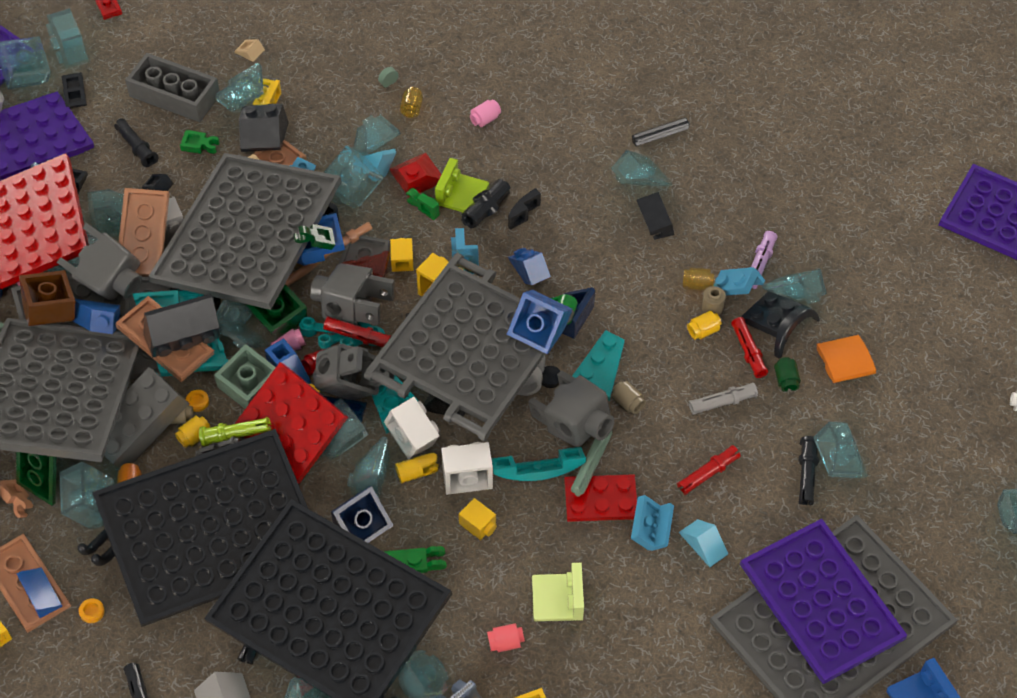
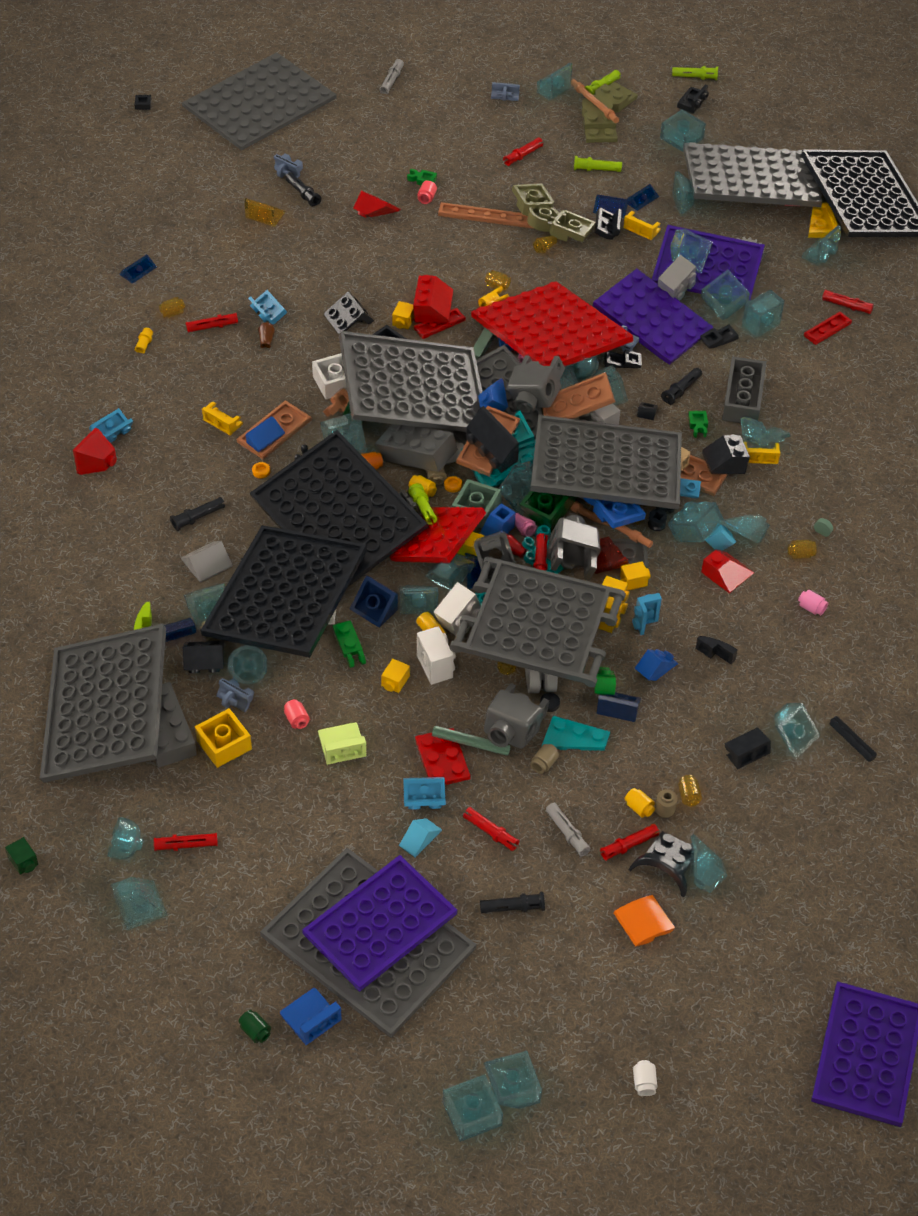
camera: 75 degrees right, 5 degrees down
(47, 298) = (493, 360): reddish brown slope -> none
(250, 49) = (813, 432): tan slope -> none
(318, 235) = (609, 502): dark green plate -> none
(425, 204) = (693, 583): green plate -> none
(457, 190) = (719, 599): lime bracket -> none
(485, 203) = (709, 620): black piece -> none
(539, 321) = (569, 654): blue slope -> none
(539, 470) = (446, 688): teal slope -> none
(738, 280) = (692, 812): dark azure bracket -> none
(768, 242) = (734, 838): lavender pin -> none
(787, 374) = (609, 874): dark green brick -> none
(839, 451) = (535, 923): clear light blue slope -> none

